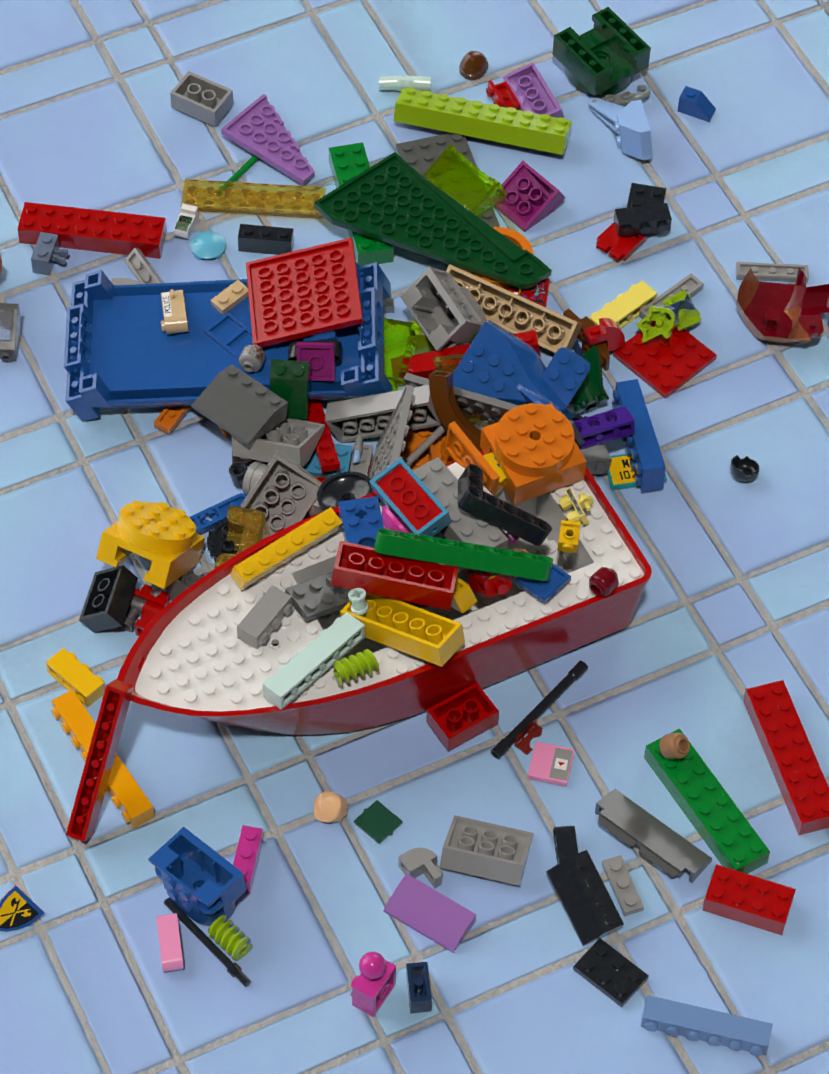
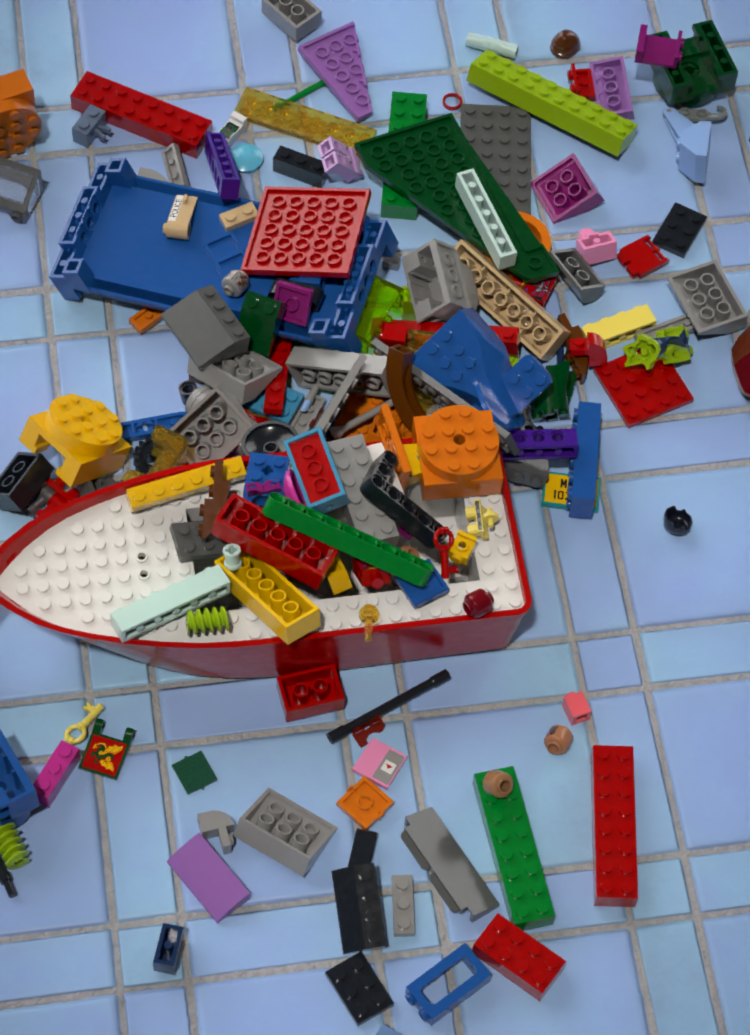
camera: 15 degrees right, 5 degrees up
(194, 255) = (222, 166): none -> dark purple brick
(254, 809) = (82, 726): none -> light yellow piece
(265, 617) = (141, 546): light grey brick -> none
(286, 828) = (104, 753): none -> flag
(302, 222) = (340, 159): none -> lavender hips
(324, 560) = (212, 507): none -> reddish brown slope
(330, 807) = (153, 745): light nougat hair -> none
(360, 534) = (259, 489): none -> magenta piece
(373, 984) = (125, 932): dark pink brick -> none
(386, 150) = (452, 95): none -> red piece
(464, 181) = (509, 160): clear neon green windscreen -> none
(467, 239) = (485, 219): none -> light aqua brick
(505, 621) = (368, 614): none -> clear yellow plate
(551, 803) = (364, 803): none -> orange plate
(554, 541) = (445, 568): none -> red piece
(568, 270) = (578, 274): none -> dark grey slope
(570, 45) = (658, 50): none -> magenta panel
(573, 241) = (596, 246): none -> bright pink brick
(642, 219) = (669, 243): black brick -> none
(688, 973) = (434, 1012): none -> blue piece
(698, 261) = (708, 299): none -> light grey slope
(710, 694) = (558, 739): none -> nougat head
(715, 661) = (576, 707): none -> coral brick

